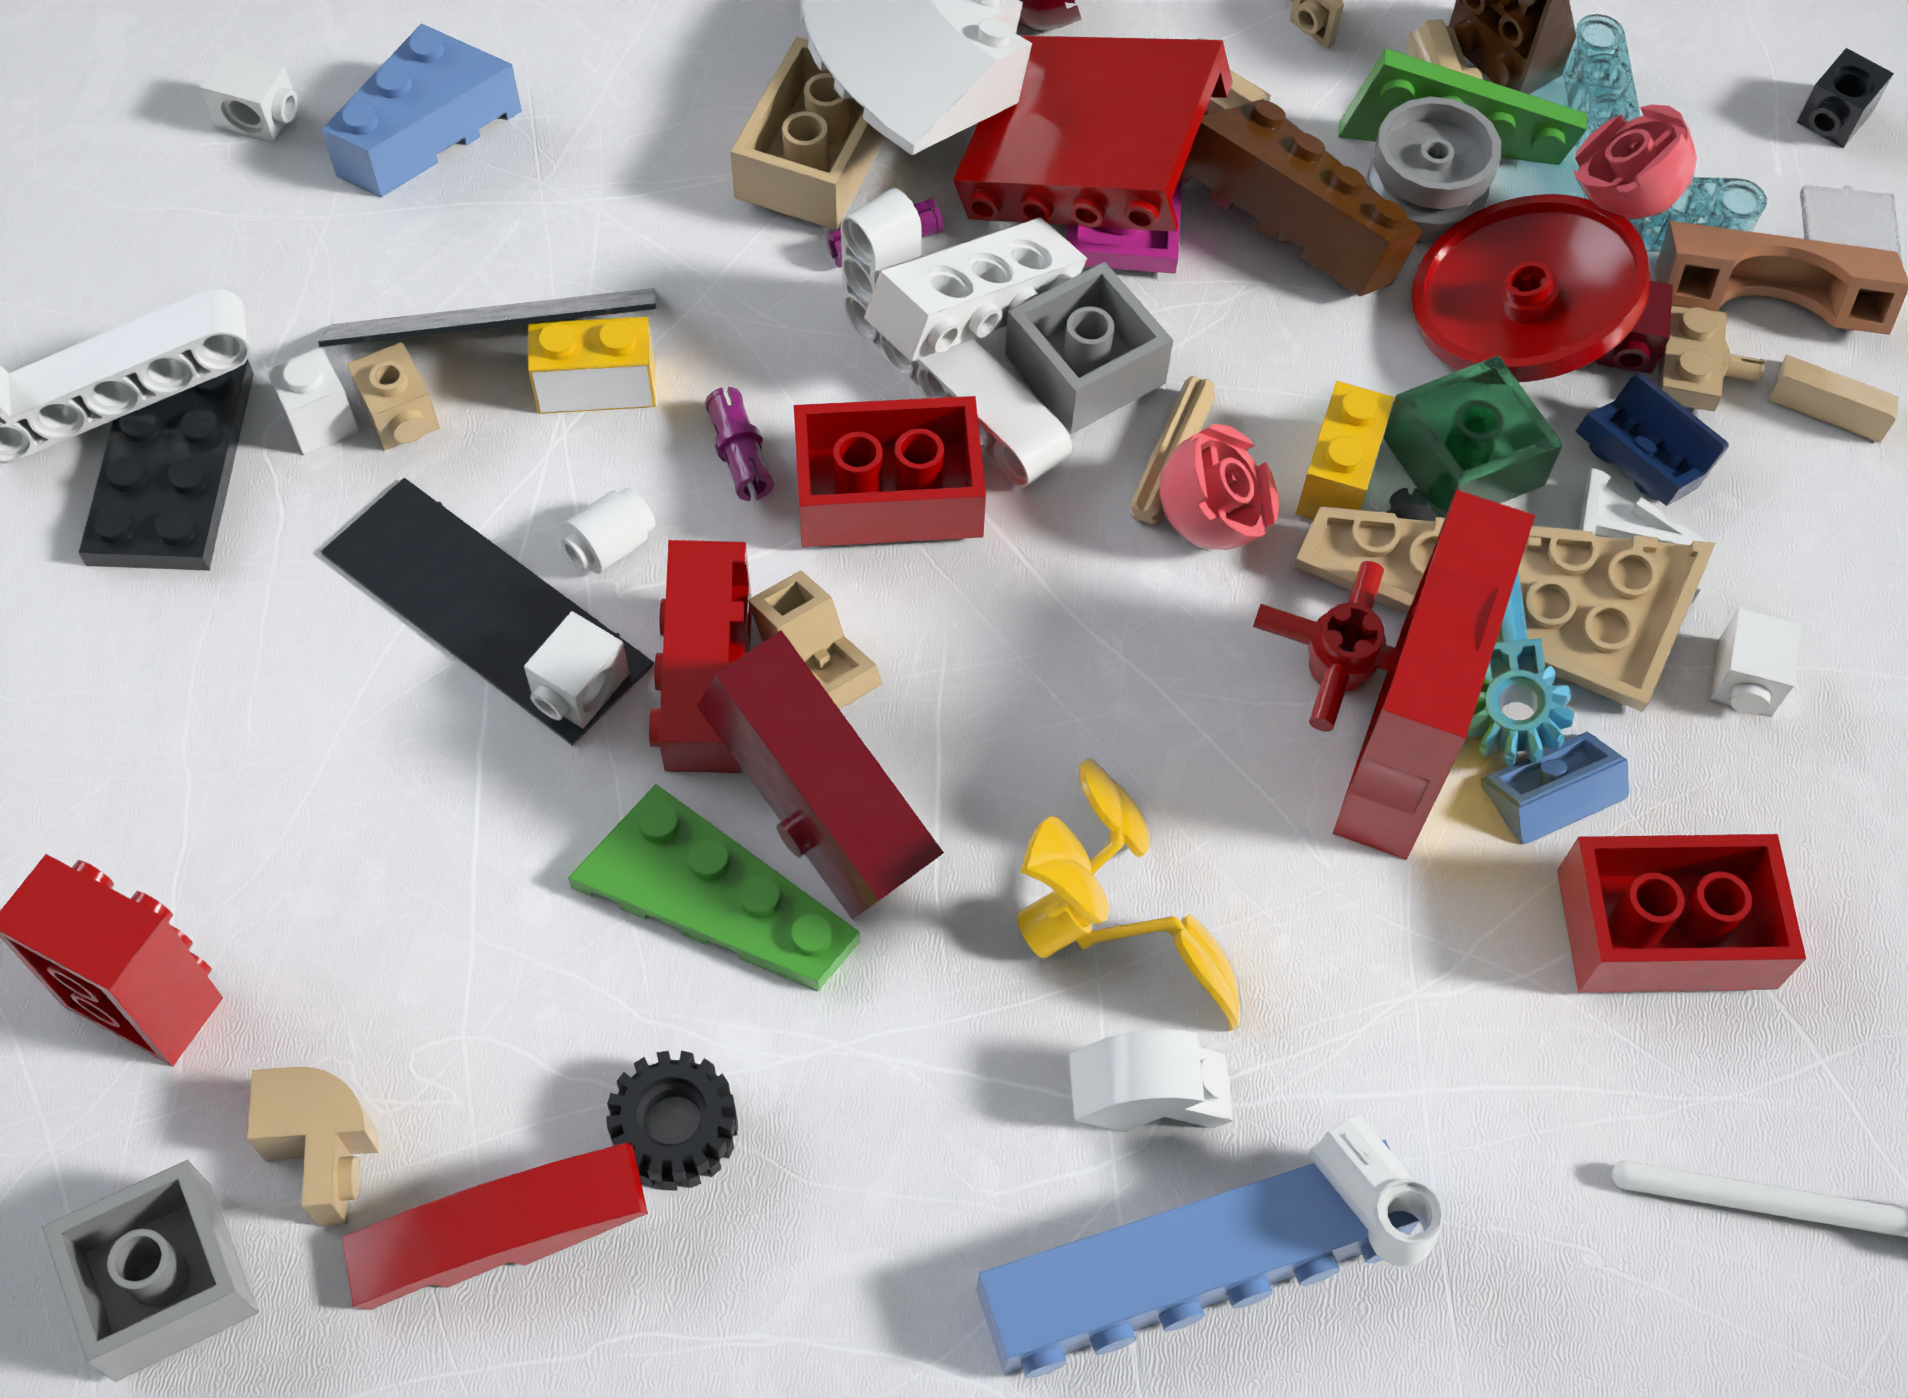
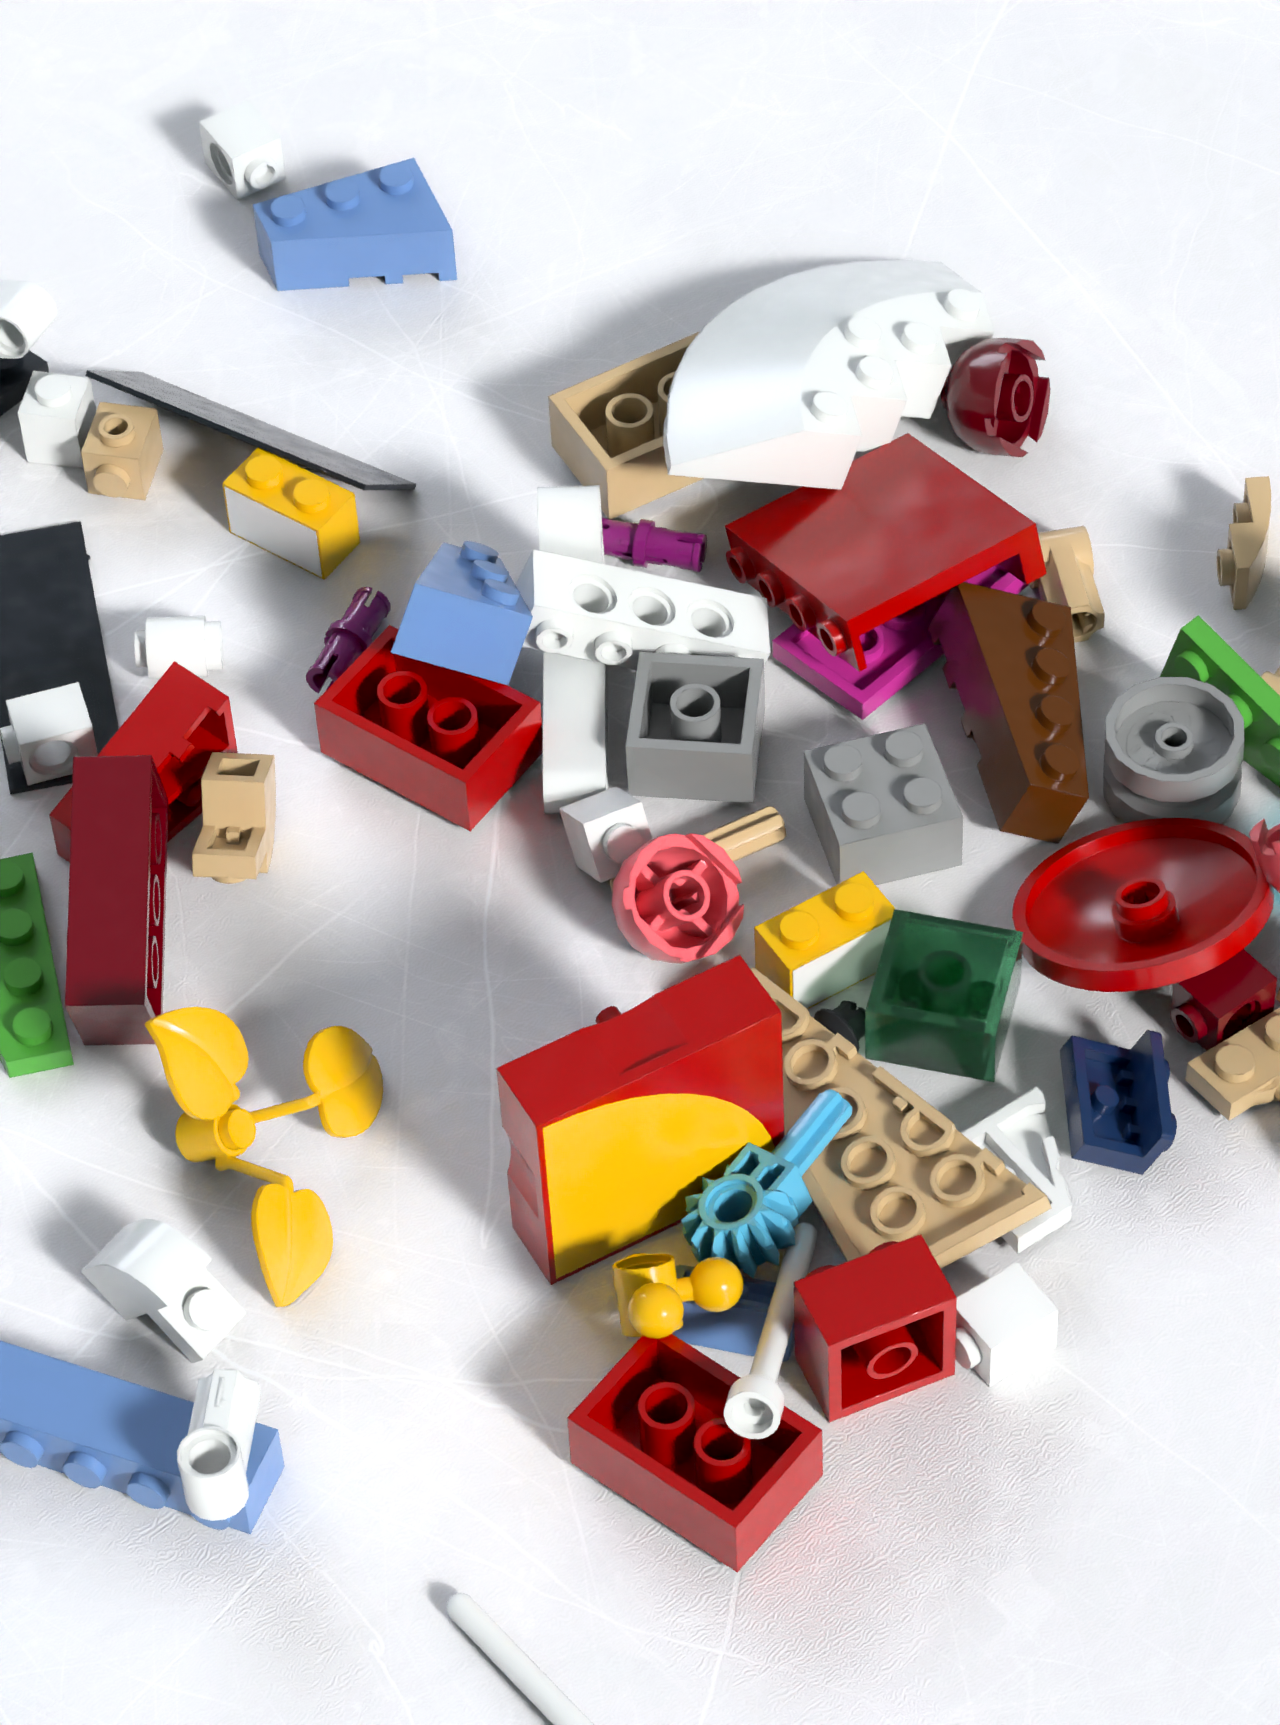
camera: 45 degrees right, 10 degrees down
(851, 357) = (465, 614): none -> medium blue wedge
(1109, 471) = (605, 831): none -> white brick
(1273, 327) = (883, 806): none -> light grey brick
(1533, 810) = (653, 1296): none -> yellow piece
(1703, 725) = (874, 1327): none -> red brick
(1733, 846) = (756, 1400): none -> white piece

